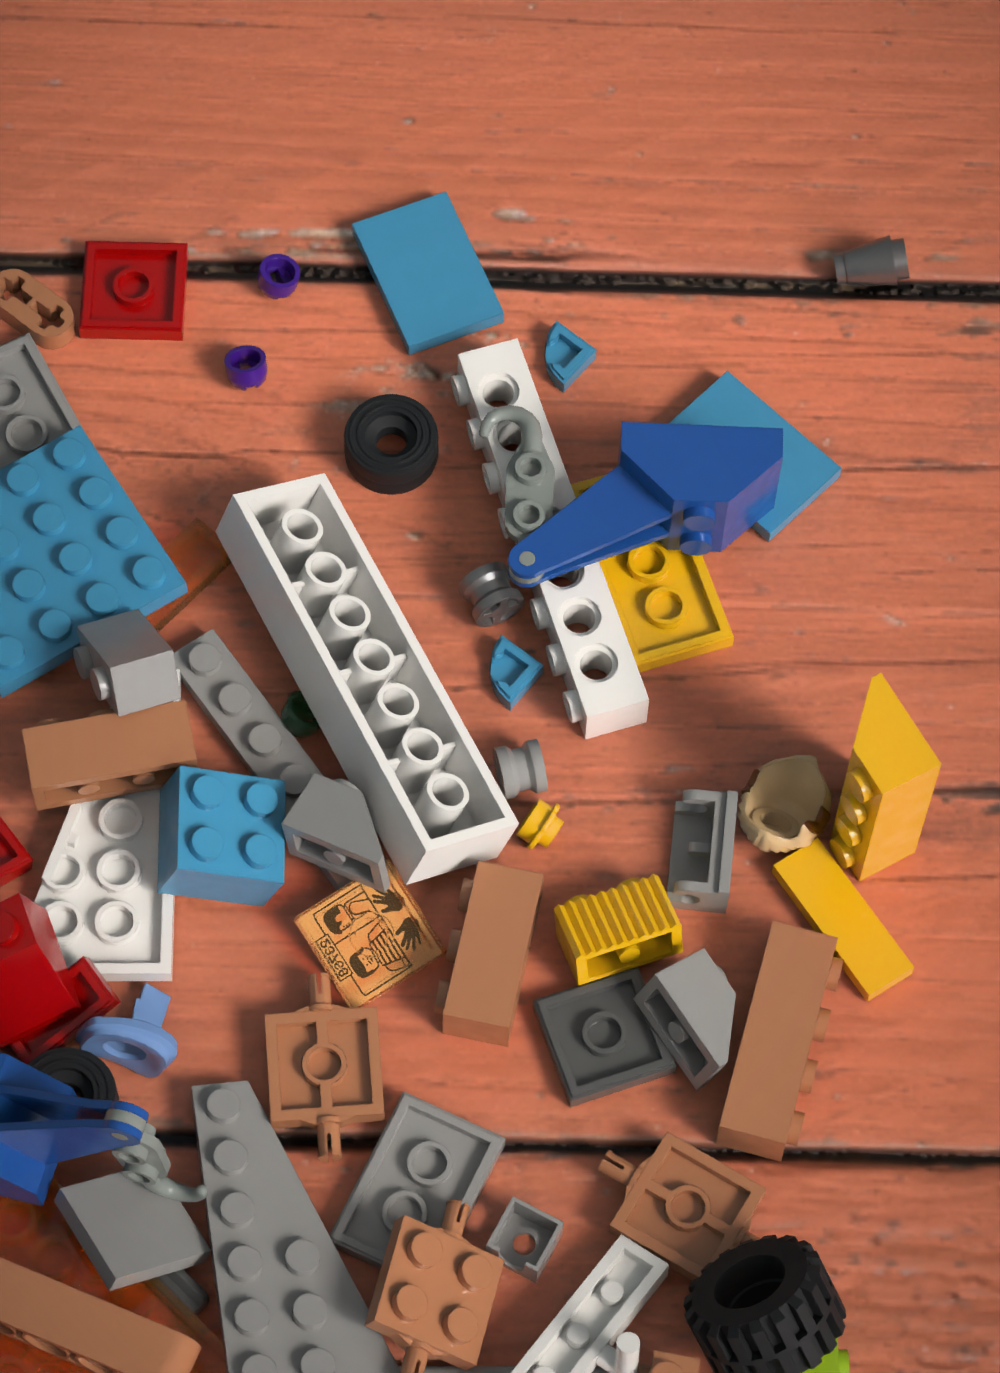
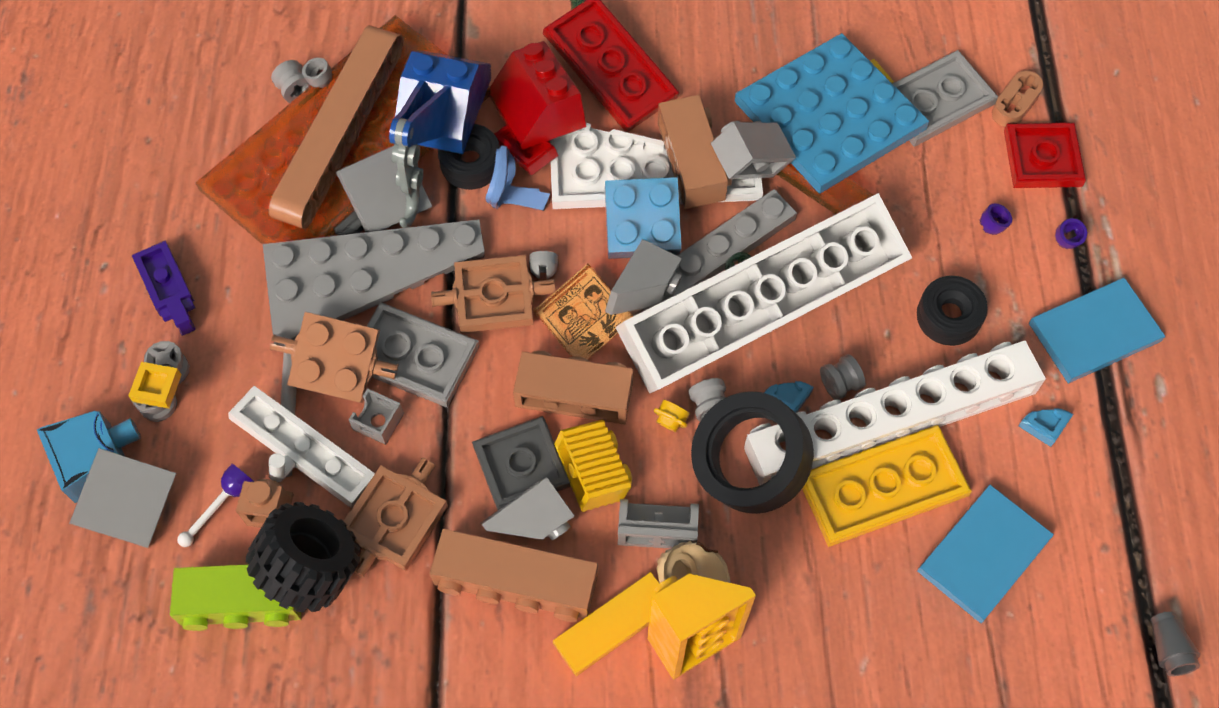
camera: 90 degrees right, 0 degrees up
(277, 993) = (543, 262): none -> light grey hinge
(671, 485) = (934, 473): blue slope -> none
(680, 698) = (714, 429): none -> black tyre

